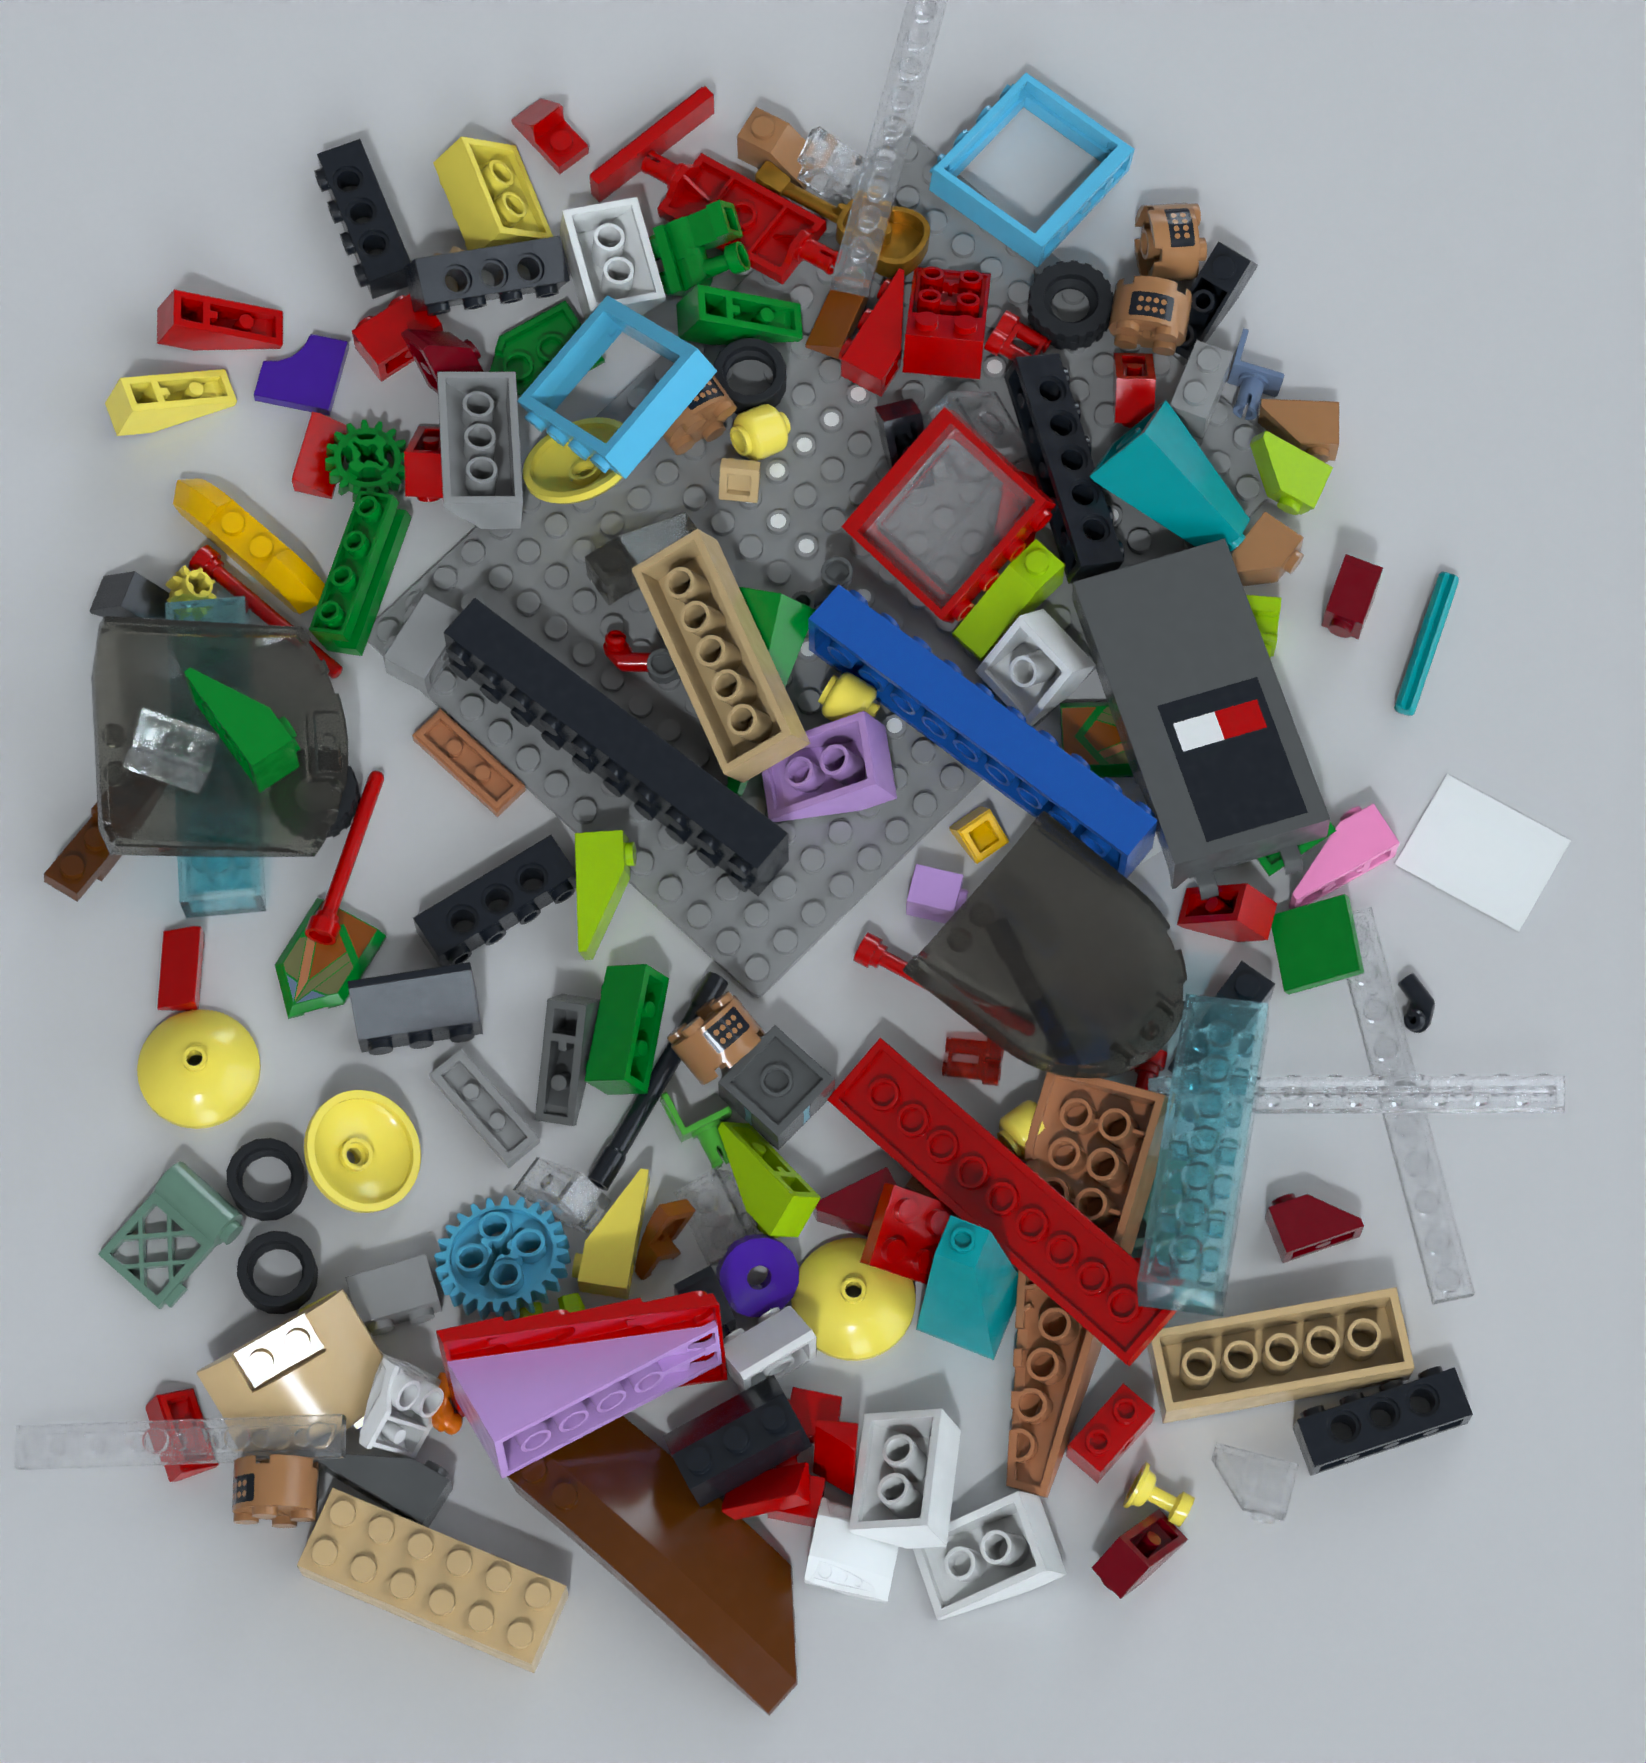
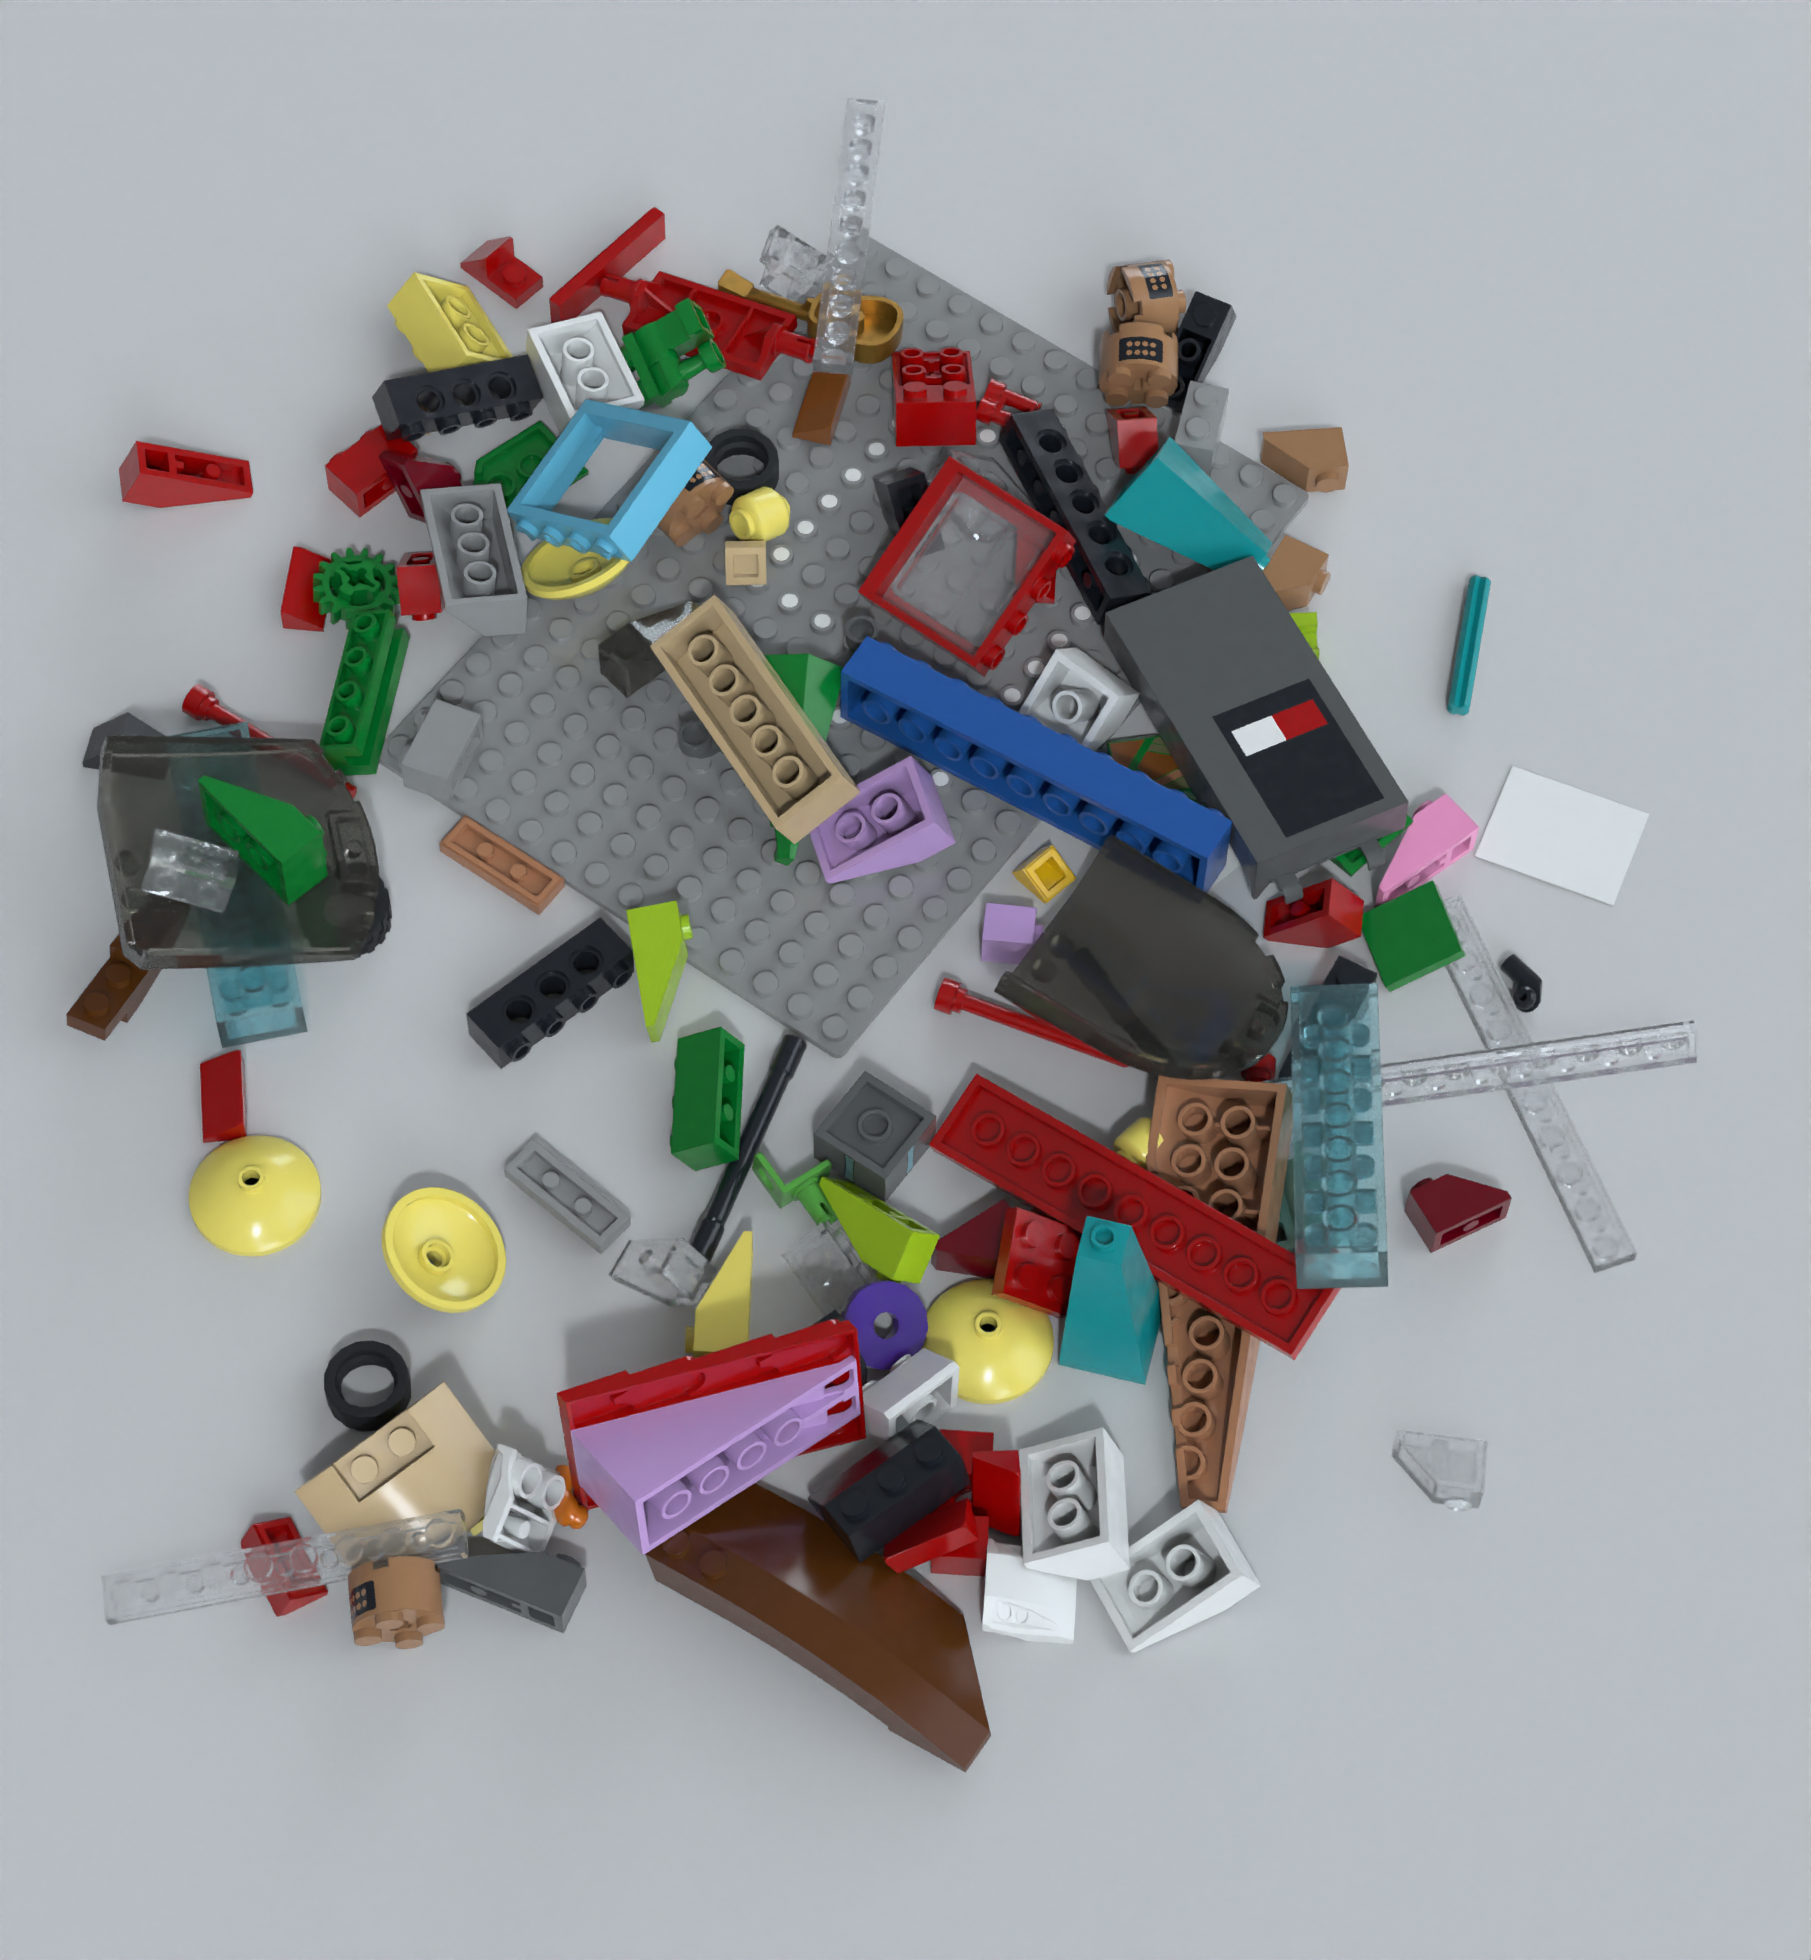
camera: 10 degrees left, 10 degrees down
(167, 400) = (137, 553): light yellow slope -> none
(190, 585) = (186, 720): light yellow gear -> none
(196, 1210) = (269, 1332): sand green piece -> none
(248, 543) = (242, 680): yellow brick -> none
(266, 1148) = (335, 1264): black tyre -> none
(307, 378) = (281, 520): dark purple tile -> none
(319, 974) = (377, 1070): tile -> none
(324, 925) = (372, 1033): red piece -> none
(347, 167) = (323, 364): black brick -> none
(395, 1294) = (500, 1389): light grey brick -> none
(415, 1008) = (481, 1101): slope -> none
(433, 1580) = (580, 1677): tan brick -> none
(502, 1258) = (607, 1334): medium azure gear -> none
(564, 1057) = (646, 1136): dark grey slope -> none
(616, 748) = (658, 823): black brick -> none
(622, 654) = (649, 741): red arm -> none
(659, 1234) = (775, 1294): dark orange slope -> none
(716, 1037) = (803, 1091): medium nougat brick -> none
(725, 316) = (721, 408): green slope -> none
(772, 140) = (728, 248): medium nougat slope -> none
(848, 696) = (887, 749): light yellow head -> none
(876, 350) = (867, 426): red slope -> none
(989, 1062) = (1092, 1090): clear red piece -> none
(1014, 593) = (1054, 624): lime slope -> none
(1066, 119) = (1018, 203): medium azure window -> none
(1077, 277) = (1061, 343): black tyre -> none
(1110, 1433) = (1282, 1437): red brick -> none
(1138, 1553) = (1332, 1556): dark red slope -> none
(1144, 1490) = (1328, 1490): light yellow piece -> none
(1252, 382) = (1249, 420): sand blue bracket -> none
(1280, 1355) = (1447, 1337): tan brick -> none
(1289, 473) = (1302, 498): lime slope -> none
(1325, 1451) = (1513, 1429): black brick -> none
(1352, 597) = (1388, 603): dark red slope -> none

